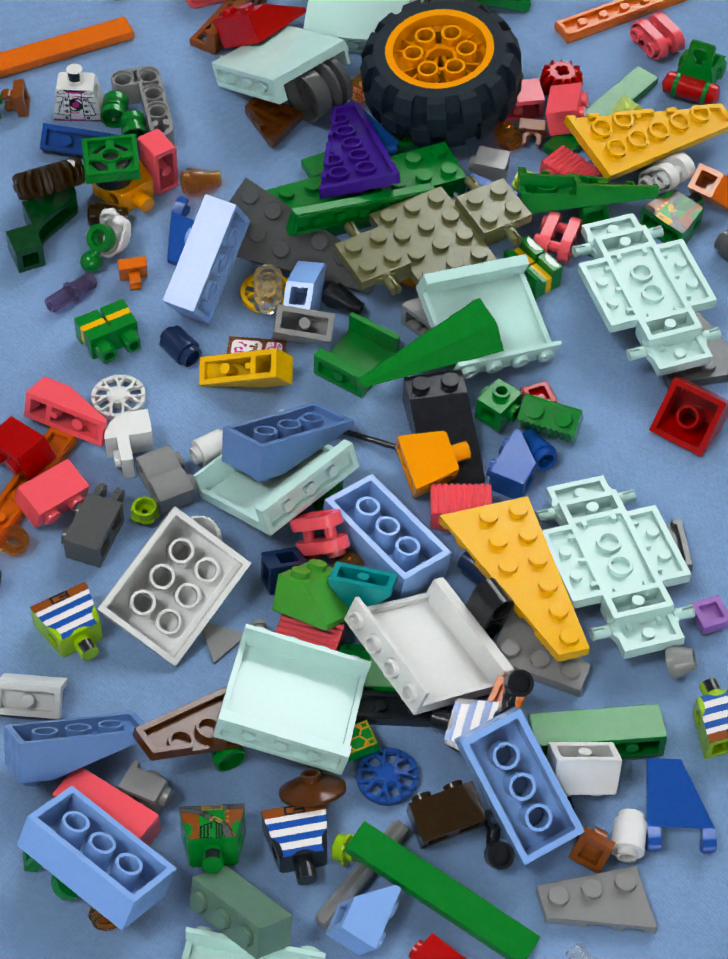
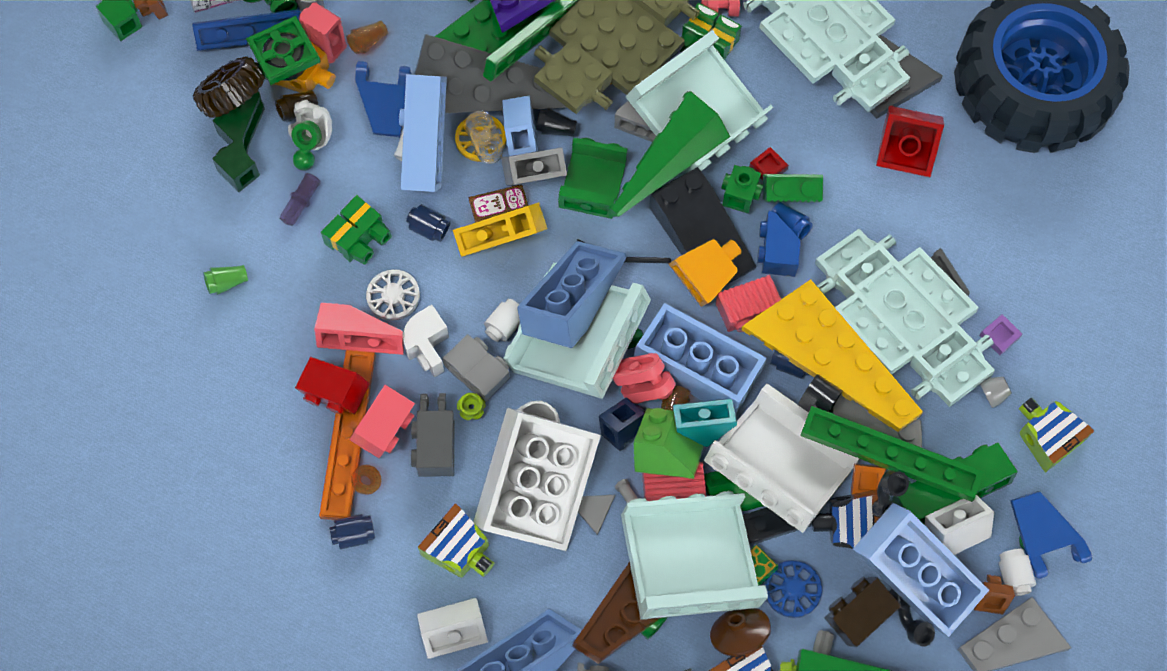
camera: 20 degrees left, 15 degrees up
(133, 270) = (349, 157): orange tile -> none
(550, 680) = (892, 453): none -> green plate

